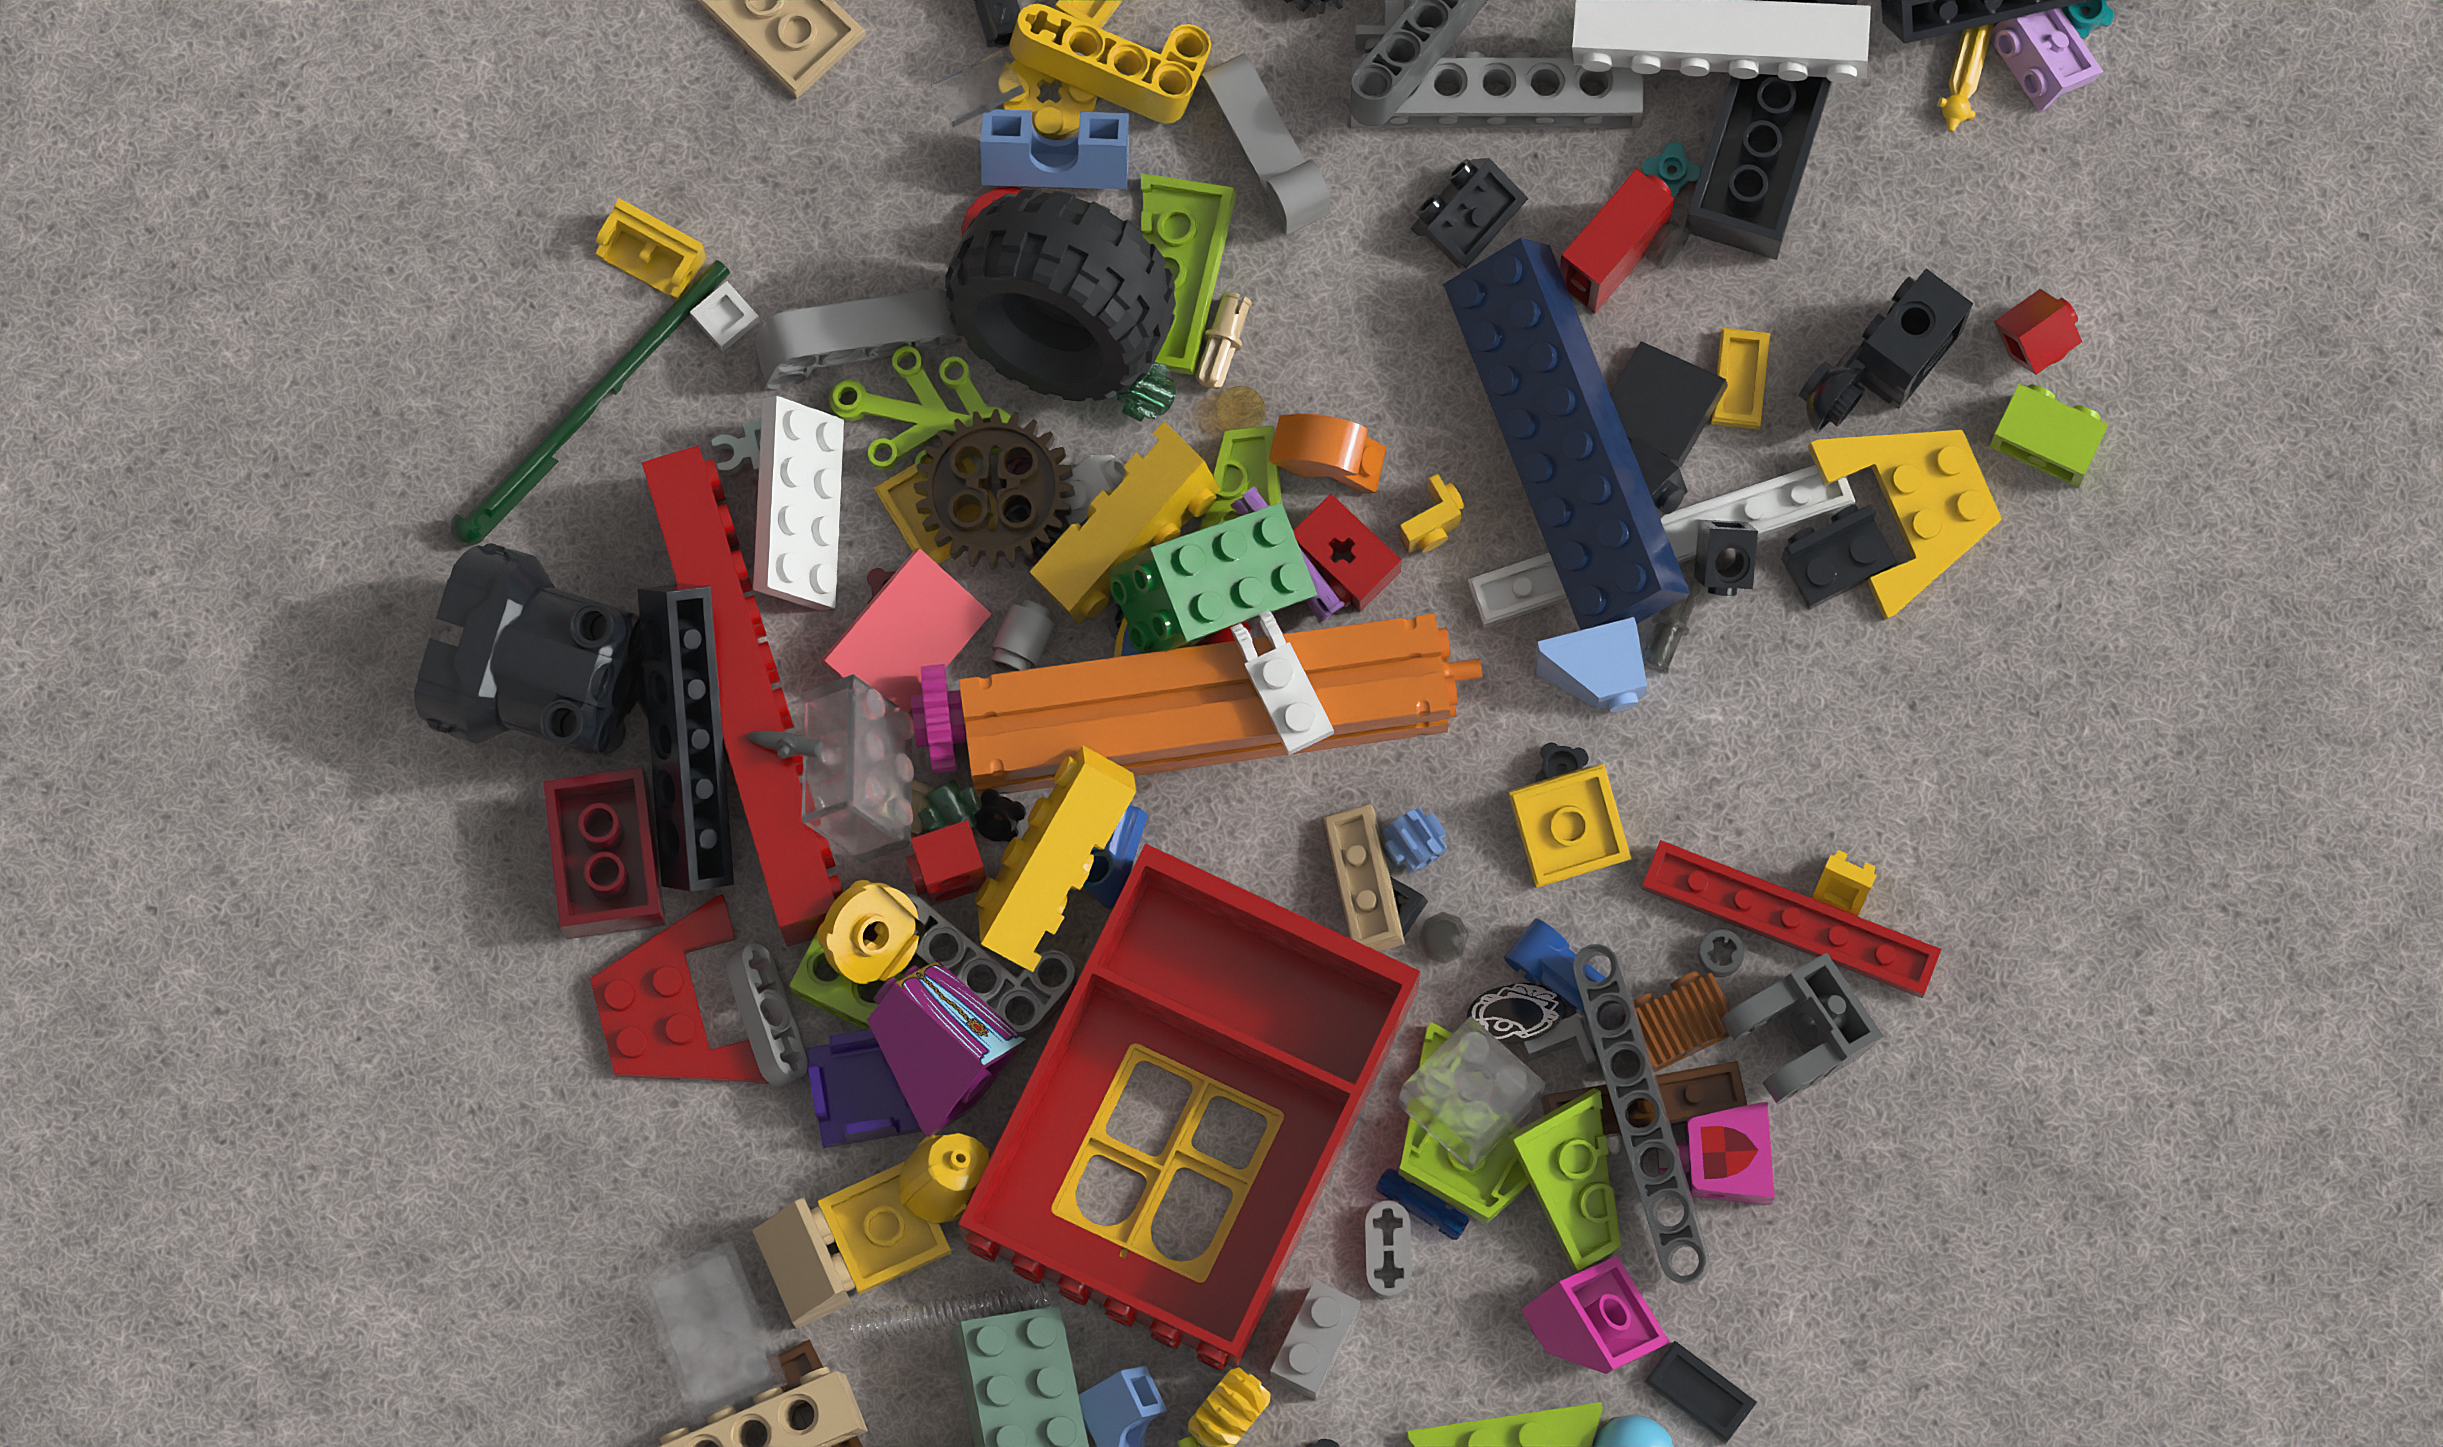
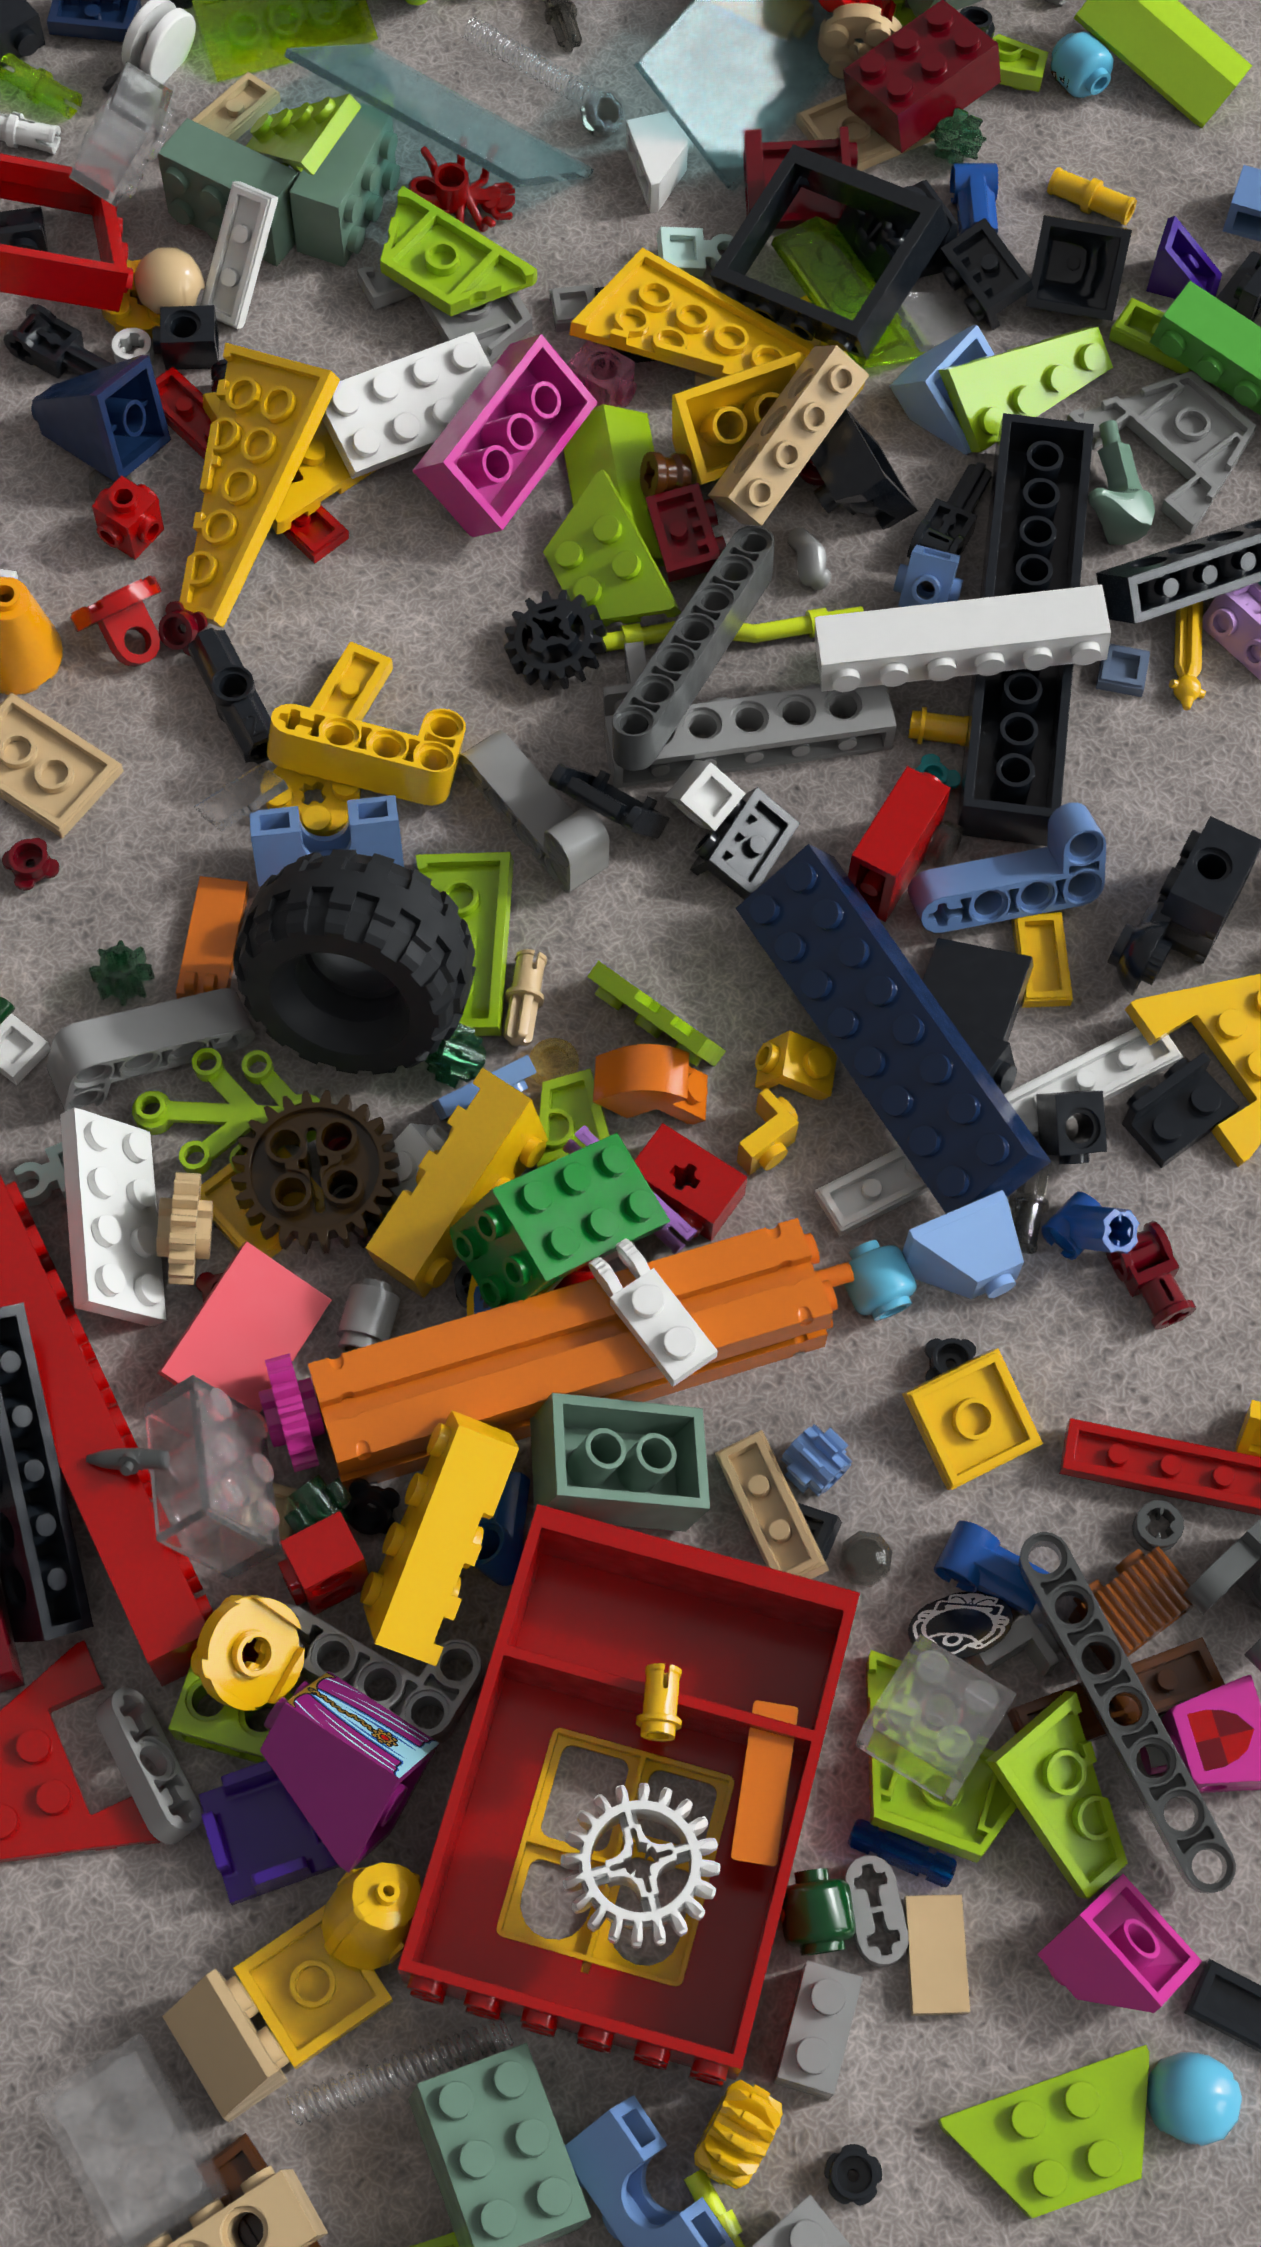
camera: 15 degrees left, 10 degrees down
(767, 110) = (25, 851): none -> dark red plate
(833, 266) = (122, 972): none -> clear green gear
(864, 526) = (184, 1228): none -> tan gear
(929, 230) = (212, 936): none -> orange hinge
(1155, 1173) = (665, 1859): none -> white gear
(1188, 423) = (512, 1074): none -> medium blue plate
(1222, 1039) = (660, 1704): none -> yellow pin
(1231, 814) = (621, 1461): none -> sand green brick
(1302, 1126) = (764, 1789): none -> orange sticker
(1334, 1242) = (817, 1913): none -> dark green head
(1340, 152) = (609, 801): none -> black container
(1345, 380) = (653, 1016): none -> lime wing
(1434, 1295) = (936, 1955): none -> tan tile
(1436, 157) = (705, 794): none -> white brick
(1473, 452) = (796, 1065): none -> yellow bracket
(1509, 679) = (880, 1281): none -> medium azure head
(1688, 113) = (938, 727): none -> yellow pin
(1719, 660) = (1089, 1226): none -> blue piece
(1727, 297) = (1019, 883): none -> medium blue beam
(1770, 709) = (1151, 1272): none -> dark red connector
(1895, 76) = (1123, 670): none -> sand blue tile

